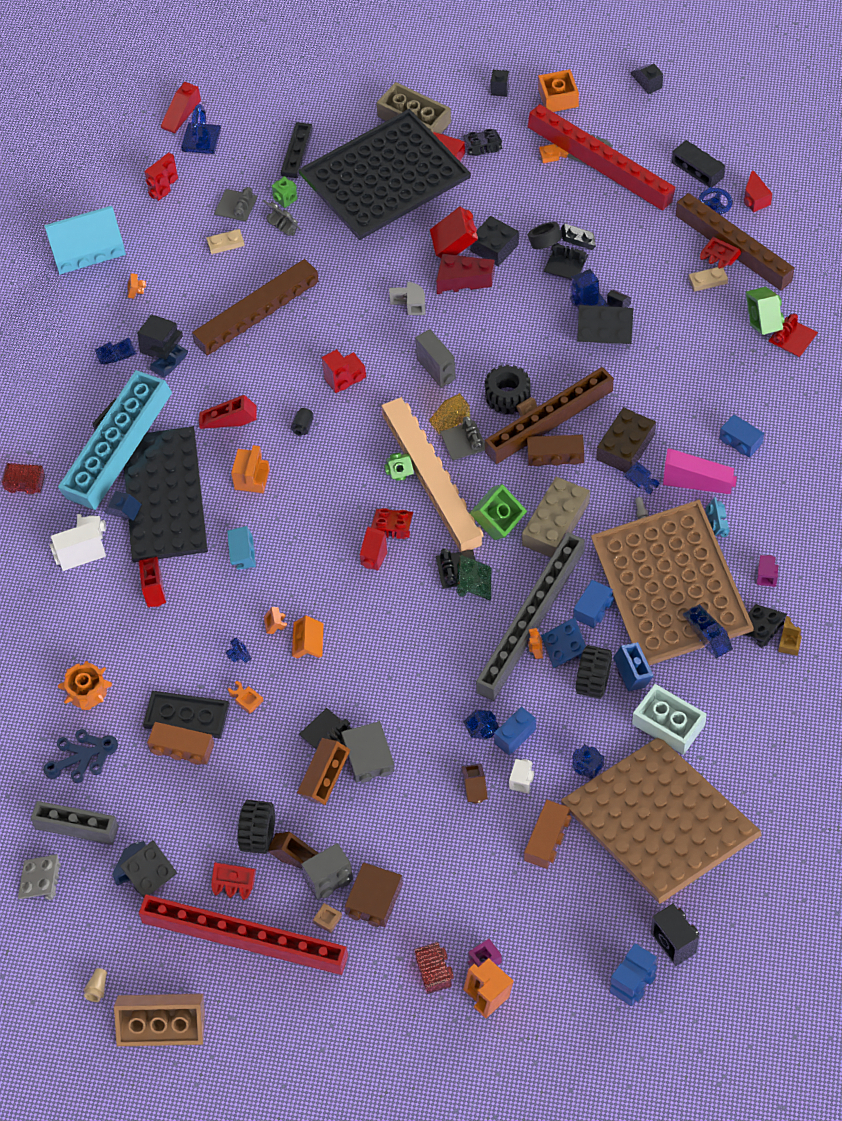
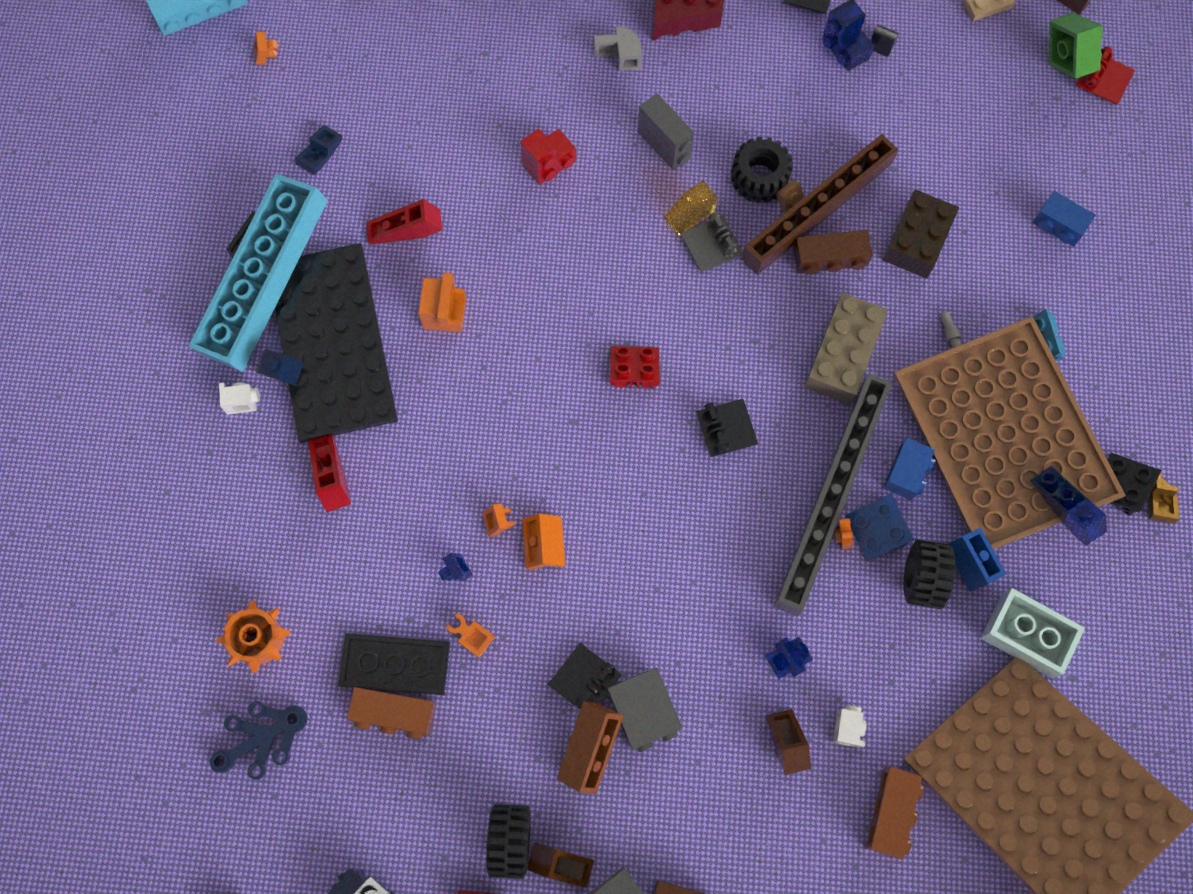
camera: 10 degrees left, 15 degrees up
(23, 478) = (142, 331): clear red brick -> none
(74, 822) = (259, 847): dark grey brick -> none
(77, 546) = (223, 430): white brick -> none
(112, 353) = (242, 144): clear blue slope -> none
(158, 337) = (301, 120): black plate -> none
(241, 548) = (442, 416): dark azure hinge -> none
(255, 307) = (423, 70): reddish brown brick -> none
(302, 421) = (502, 229): black brick -> none
(373, 549) = (616, 410): red slope -> none
(403, 470) = (635, 287): brick -> none
(432, 475) = (679, 297): light nougat brick -> none
(473, 578) = (750, 442): clear green hinge -> none
(498, 512) = (774, 347): bright green brick -> none
(515, 731) = (833, 663): blue brick -> none
(587, 761) = (934, 702): clear blue brick -> none
(605, 324) = (876, 74): black brick -> none
(641, 476) = (943, 282): clear blue plate -> none
(697, 473) = (1017, 275): dark pink slope -> none
(767, 571) = (1123, 407): magenta brick -> none

